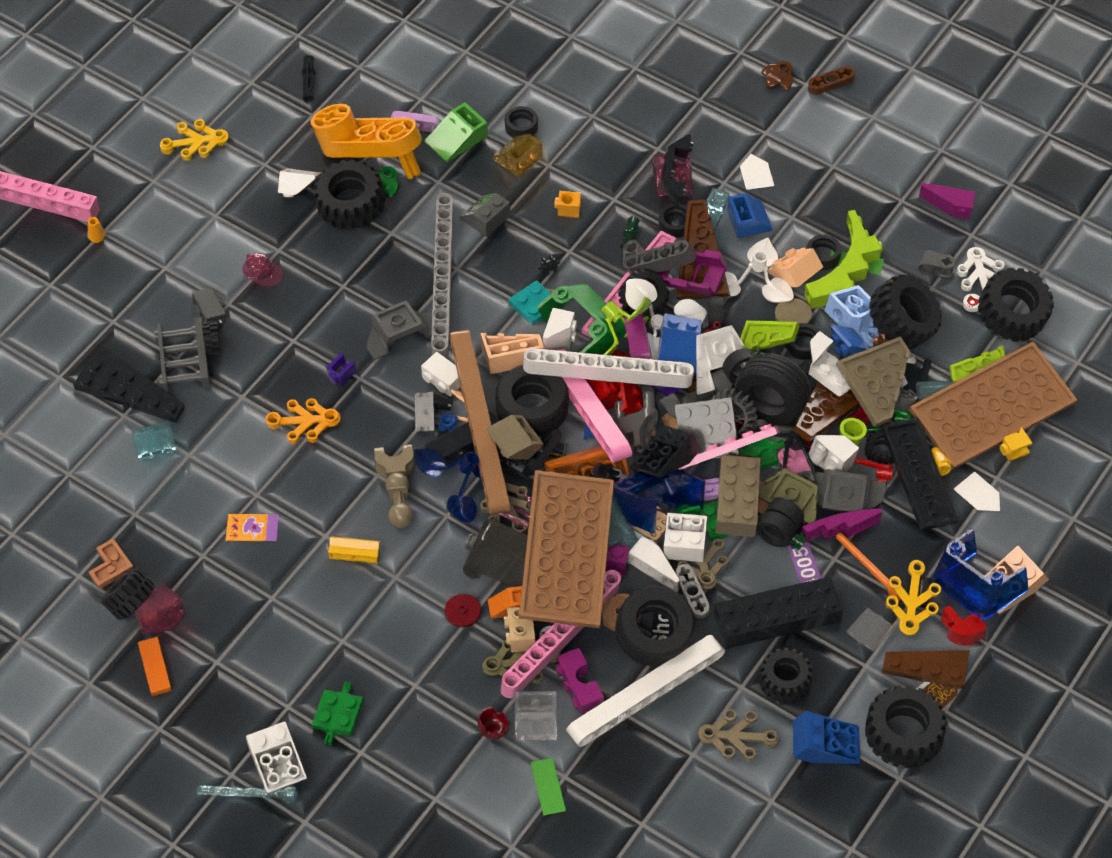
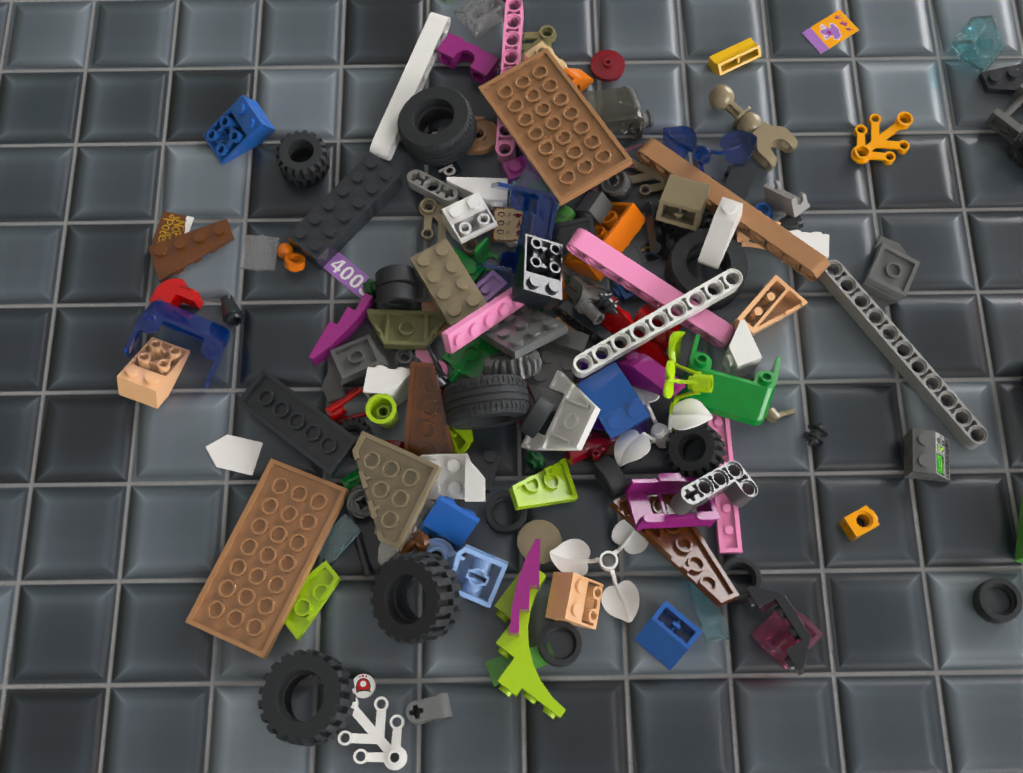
camera: 145 degrees right, 15 degrees up
(340, 371) = (895, 199): dark purple window -> none
(507, 394) = (720, 232): none -> white slope
(519, 154) = (962, 551): clear yellow slope -> none
(527, 300) = (795, 387): teal plate -> none
(630, 231) = (771, 531): clear green pin -> none
(633, 400) = (607, 303): none -> black wheel
(735, 735) = (314, 93): dark tan plant -> none
(756, 173) = (706, 714): white sticker -> none
(824, 281) = (527, 580): none -> magenta slope
(848, 616) = (292, 261): none -> orange plate
(866, 563) = (255, 296): orange piece -> none
(908, 703) = (165, 151): black tyre -> none
(912, 600) = (226, 273): yellow plant -> none
(942, 461) = (287, 454): yellow cone -> none
(1015, 445) = (222, 523): yellow window -> none

